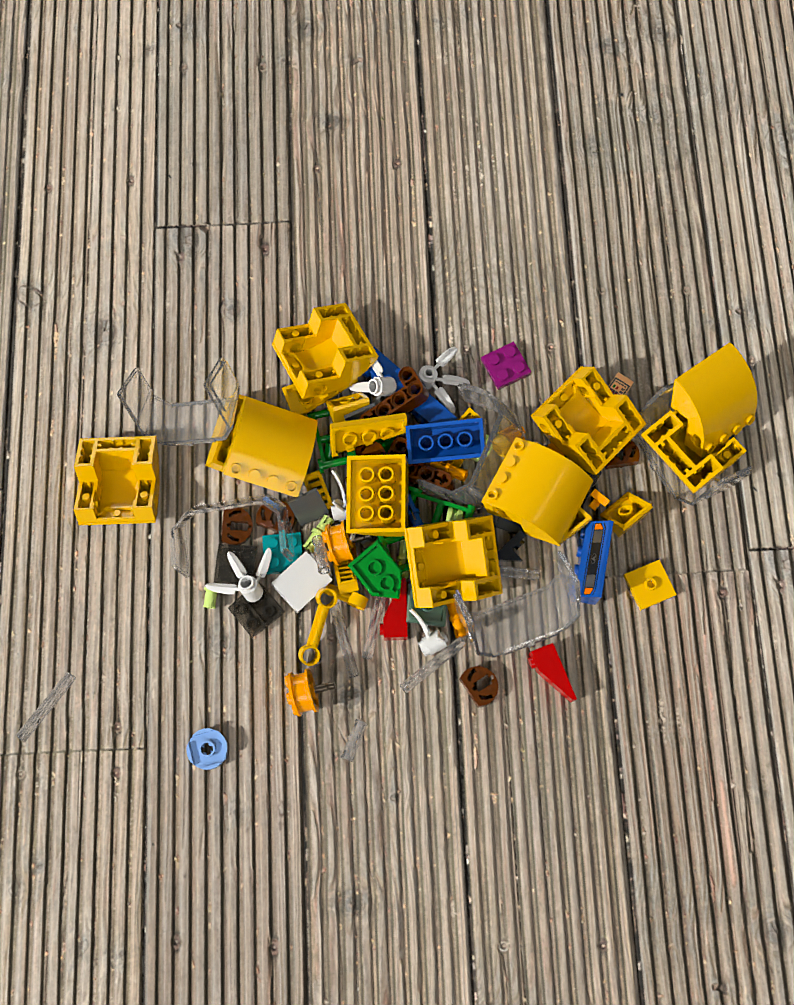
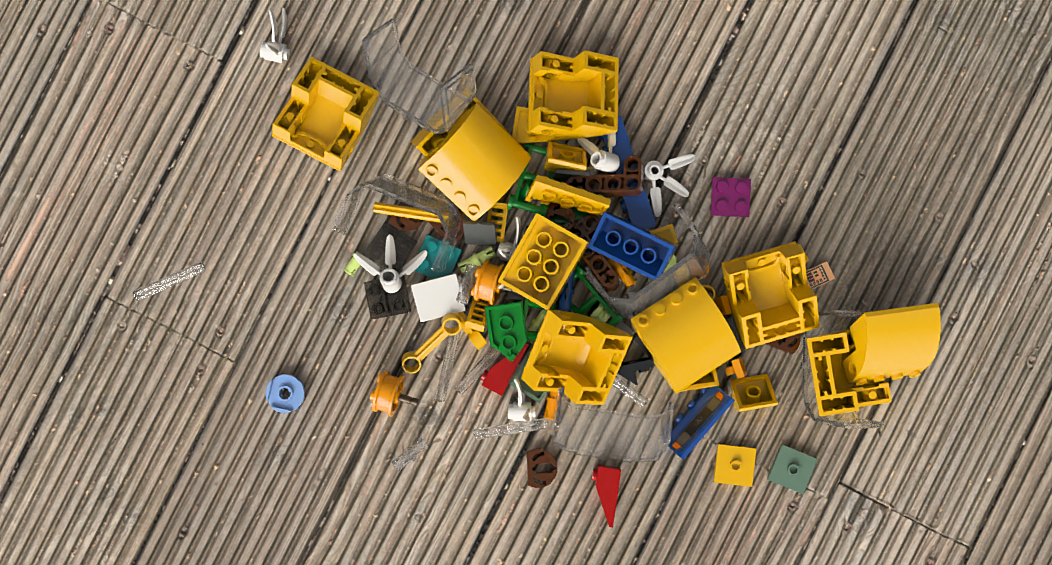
camera: 20 degrees right, 15 degrees up
(46, 452) = (272, 50): none -> white plant
(236, 523) = (403, 211): none -> yellow axle
(701, 560) = (792, 469): none -> sand green plate

